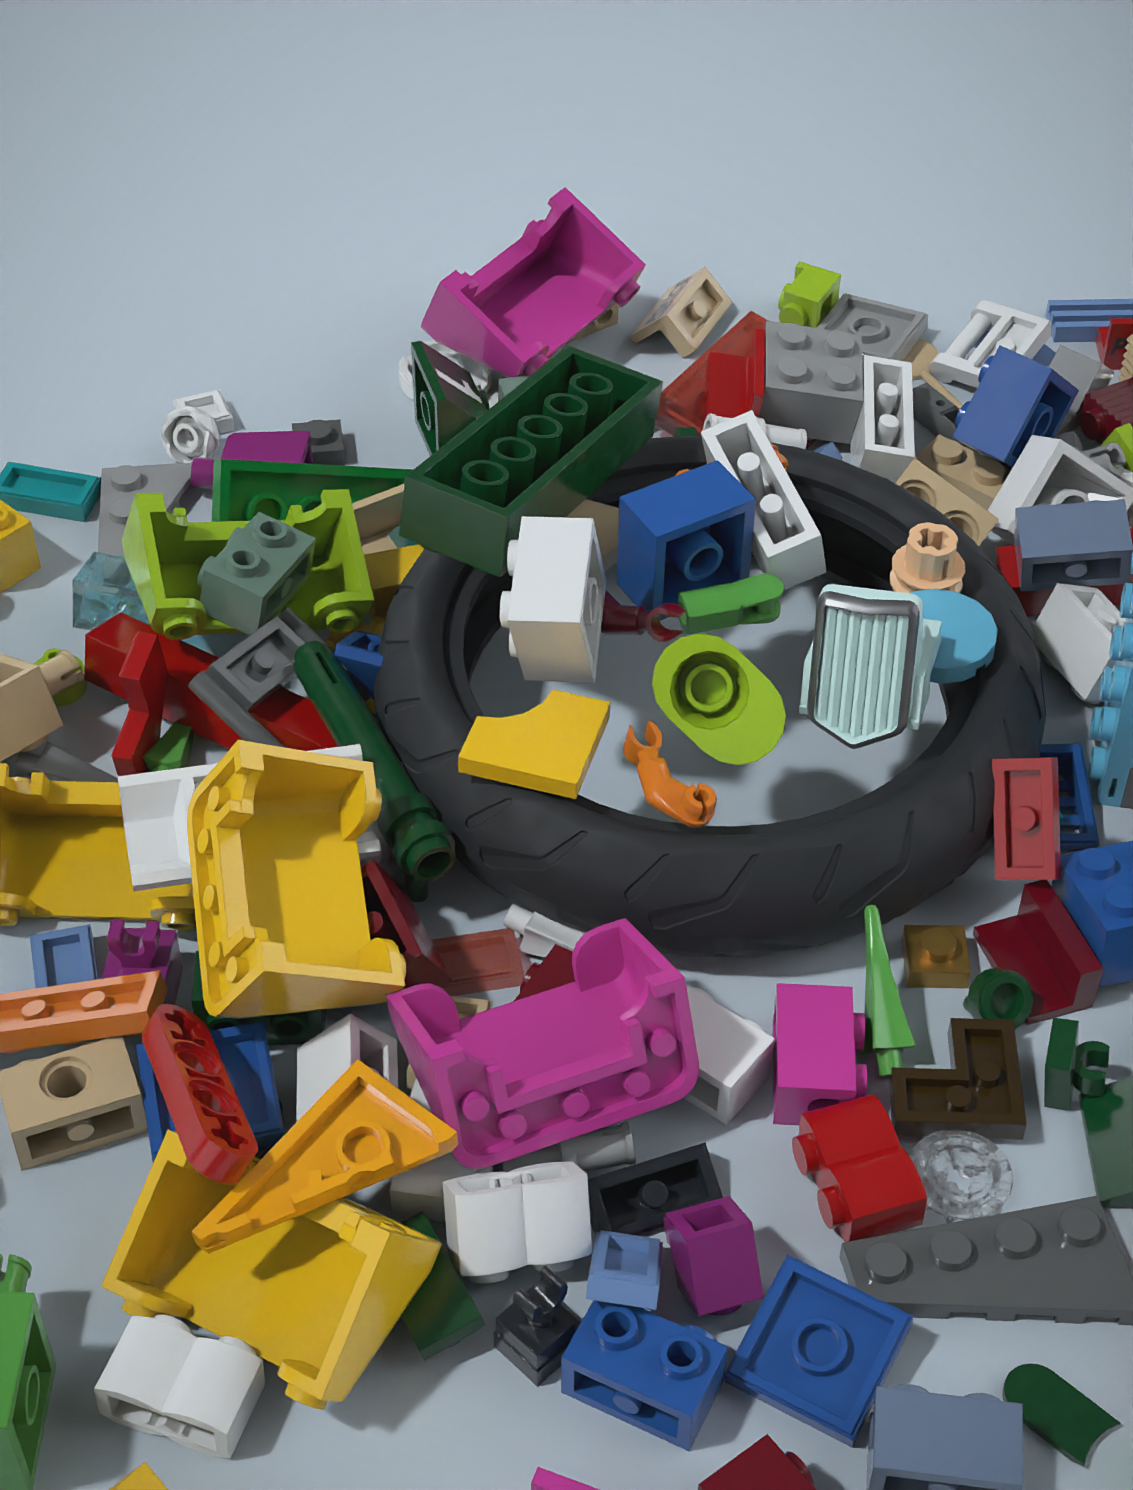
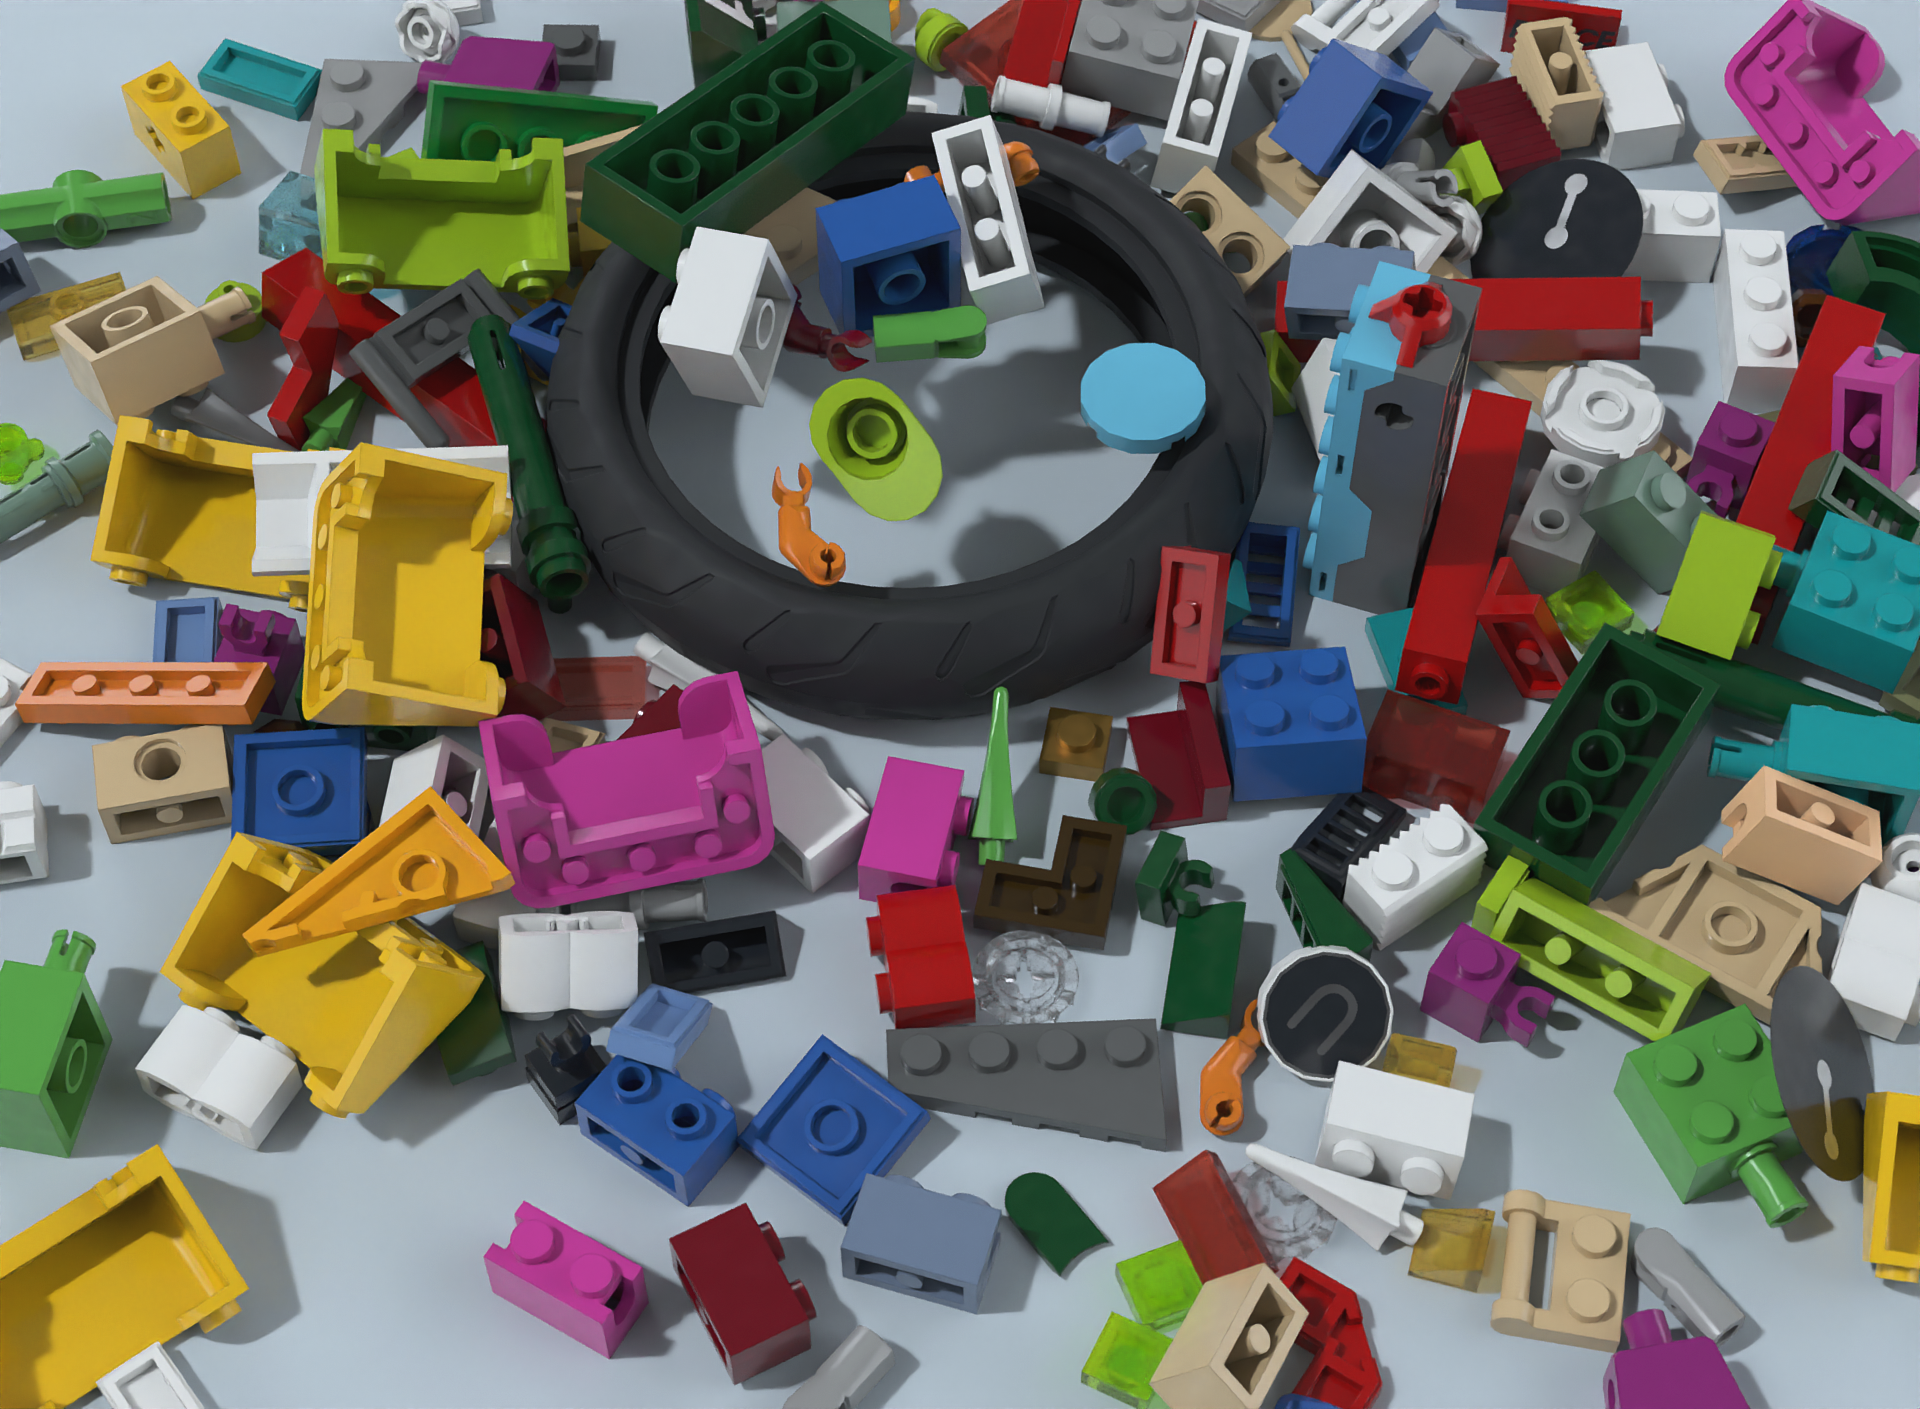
camera: 10 degrees right, 10 degrees up
(199, 1094) = (267, 743): red beam -> none
(256, 573) = (448, 226): sand green brick -> none
(541, 748) = (685, 477): yellow tile -> none
(714, 1256) = (749, 1026): magenta brick -> none
(868, 664) = (1046, 430): light aqua piece -> none
(928, 561) = (1145, 307): light nougat piece -> none

